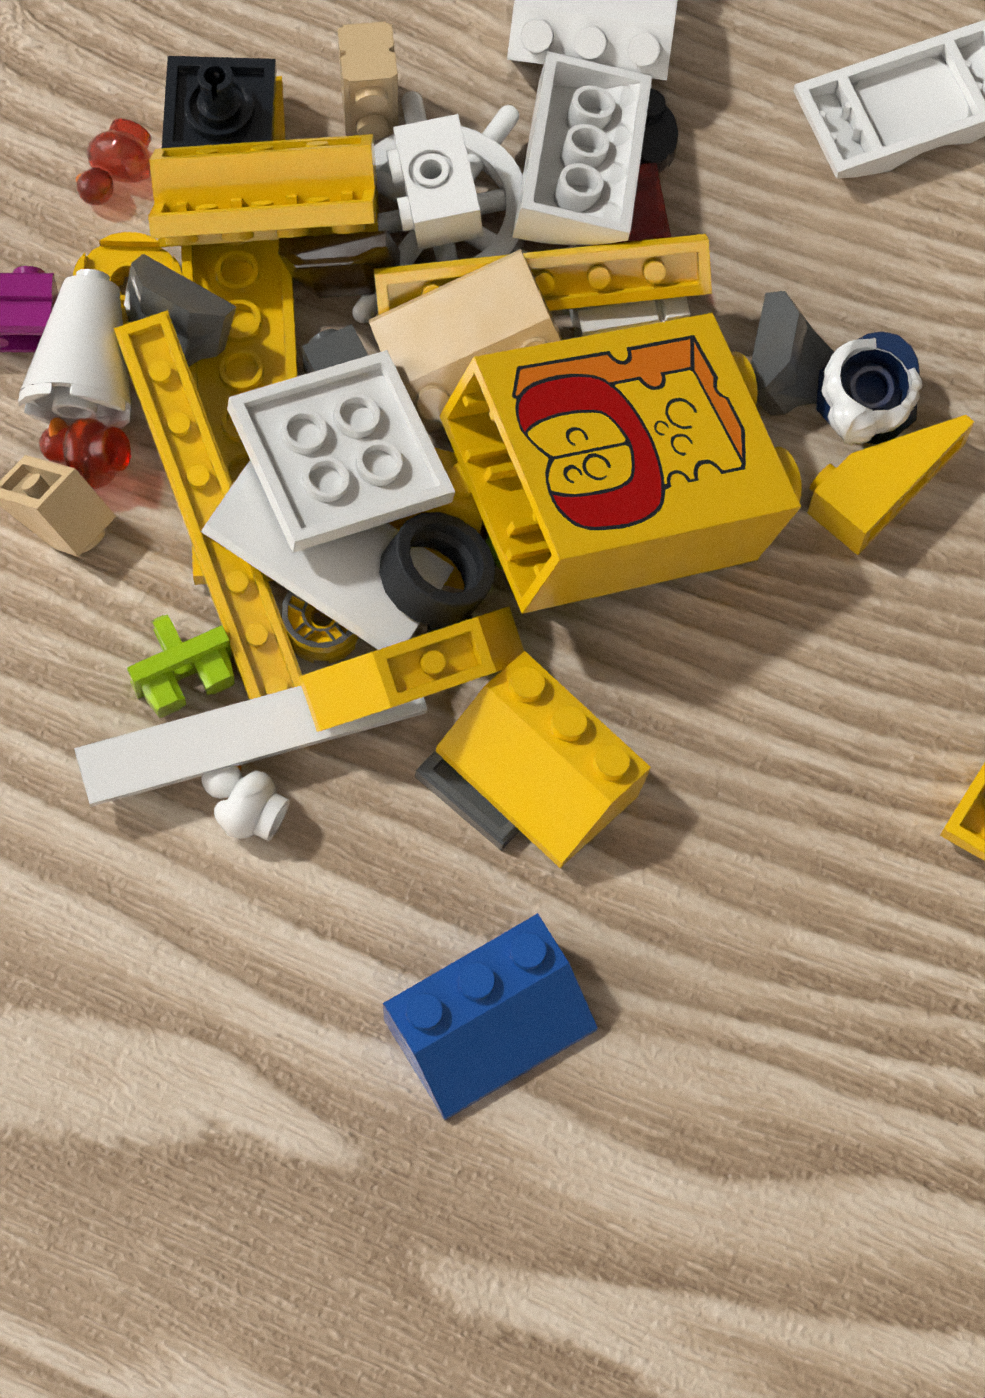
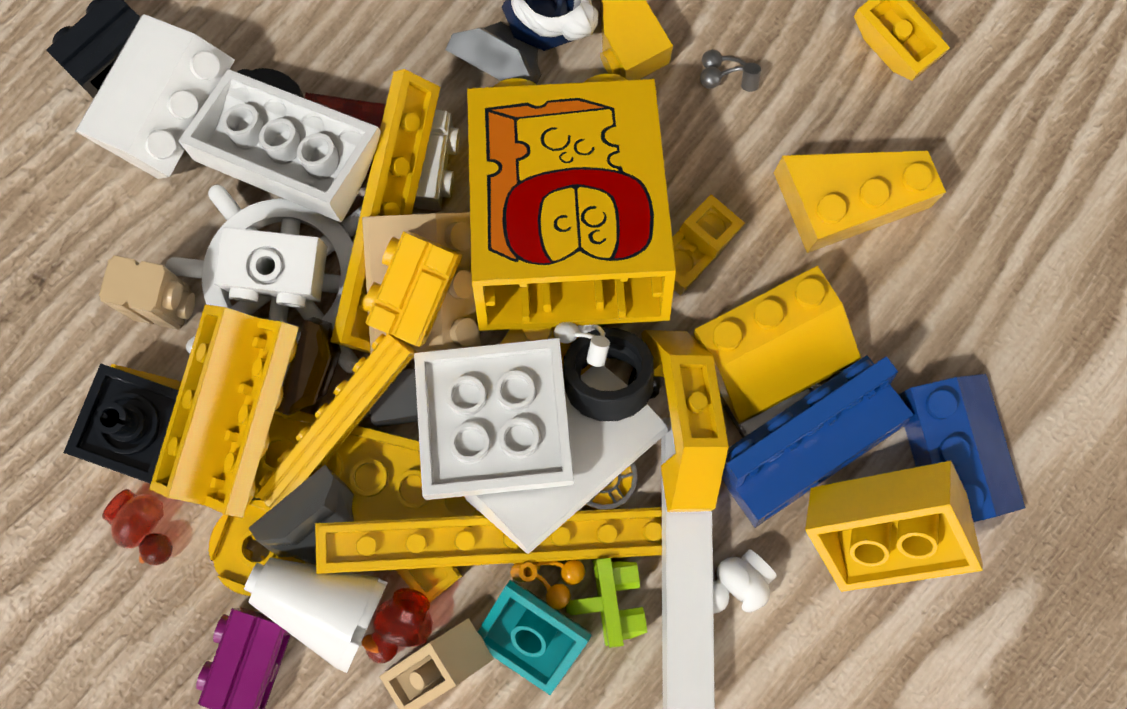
camera: 70 degrees left, 10 degrees up
(120, 594) = (532, 637): none -> teal slope
(146, 474) = (430, 581): none -> yellow tile
(171, 603) = (558, 594): none -> light orange piece
(297, 307) = (337, 419): none -> yellow piece
(361, 937) = (894, 527): none -> yellow slope
(439, 830) = (814, 439): none -> blue brick
(453, 537) = (598, 345): none -> white piece
(454, 318) = (411, 288): none -> yellow brick
(638, 646) = (701, 240): none -> yellow slope
(764, 801) = (855, 192): none -> yellow wedge
(858, 604) = (712, 76): none -> flat silver piece

